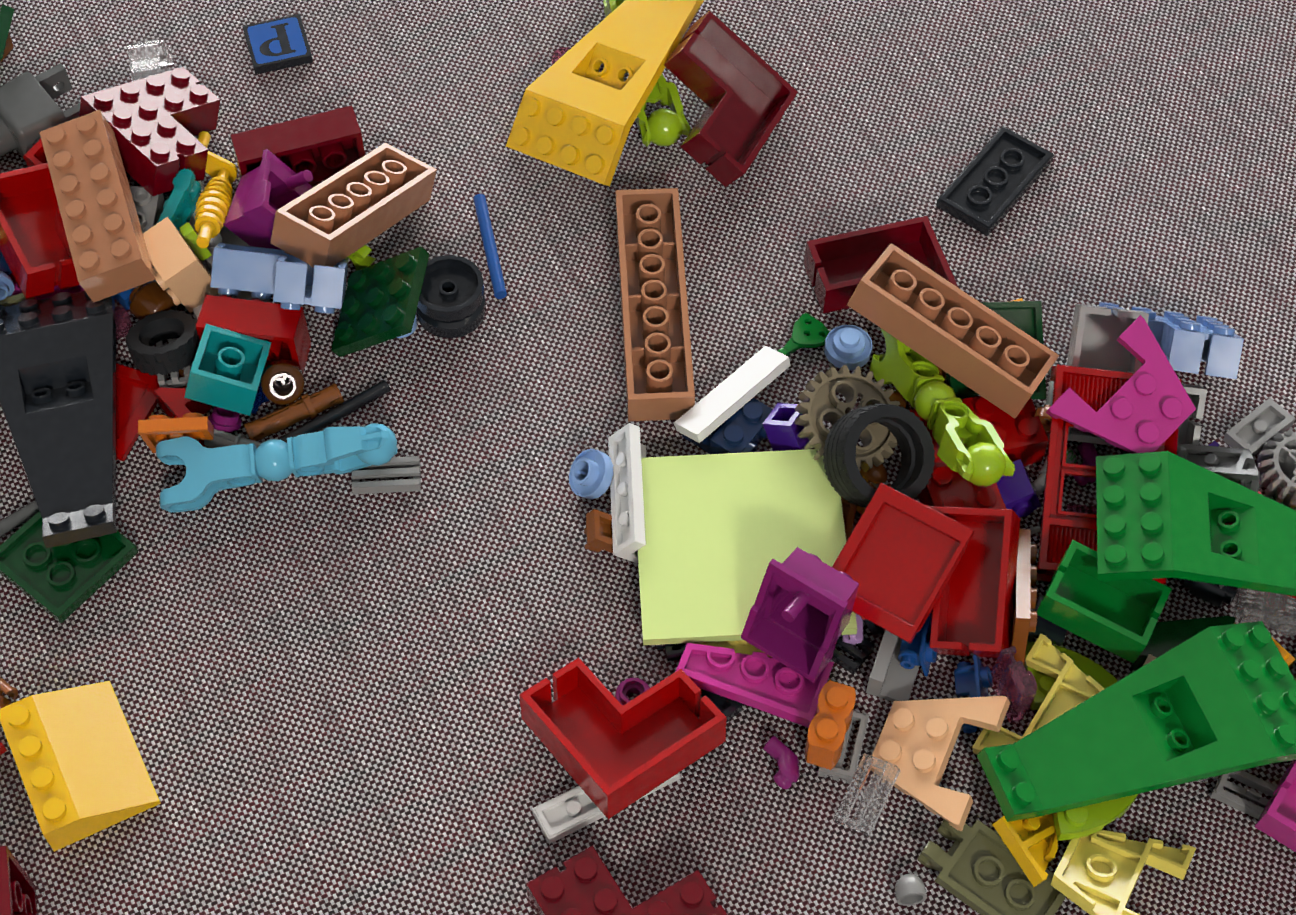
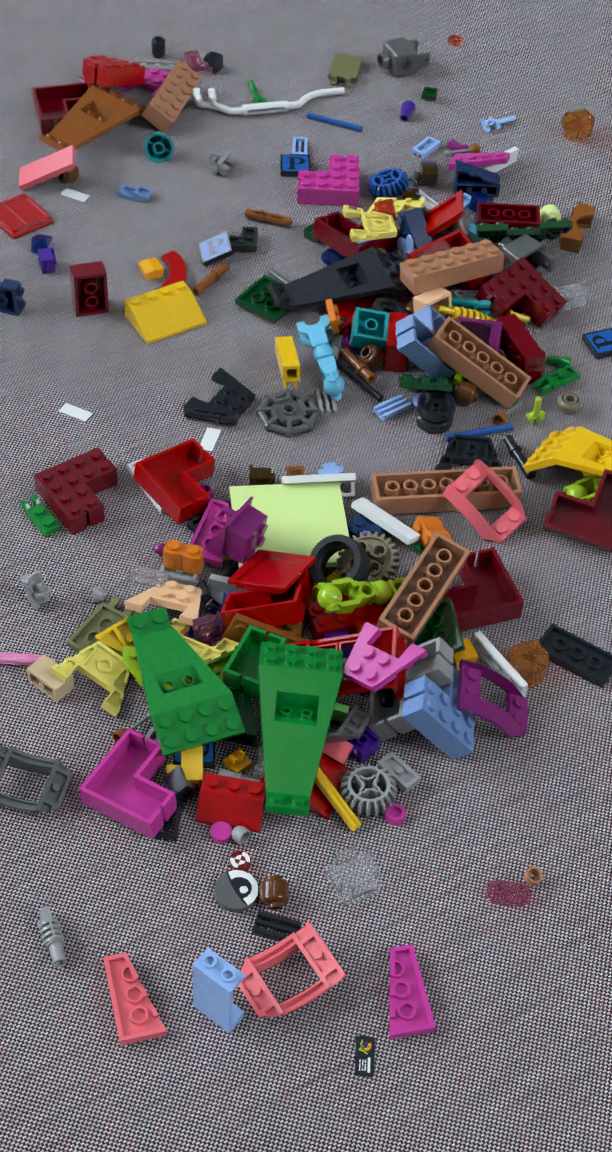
camera: 85 degrees right, 10 degrees down
(295, 517) = (287, 360): none -> yellow brick
(320, 103) = (559, 360): none -> green arm
(364, 640) = (231, 399): none -> black wing
(370, 116) = (556, 379): none -> green hinge
(397, 241) = (465, 393): none -> reddish brown head
(401, 713) = (207, 415): none -> black pin
(402, 350) = (390, 406): none -> light blue tile
(414, 557) = (297, 412): none -> dark grey plate
(438, 106) = (569, 403): none -> dark tan cone
(459, 207) = (501, 417): none -> dark orange hinge
(462, 151) = (537, 413): none -> lime bar
(473, 685) = (210, 438): none -> white sticker
(544, 259) = (466, 449): none -> black wing
(547, 198) = (516, 452): none -> black pin
(603, 593) = (261, 476): none -> dark brown brick
(675, 258) = (466, 484): none -> coral wedge
(747, 333) = (427, 527): none -> orange brick
(914, 690) = (211, 604): none -> black piece
(1031, 237) = (529, 661): none -> clear orange brick
(1034, 273) = (498, 662): none -> white tile
(1132, 282) = (513, 720): none -> magenta wedge
(1241, 840) = (116, 735): none -> hinge

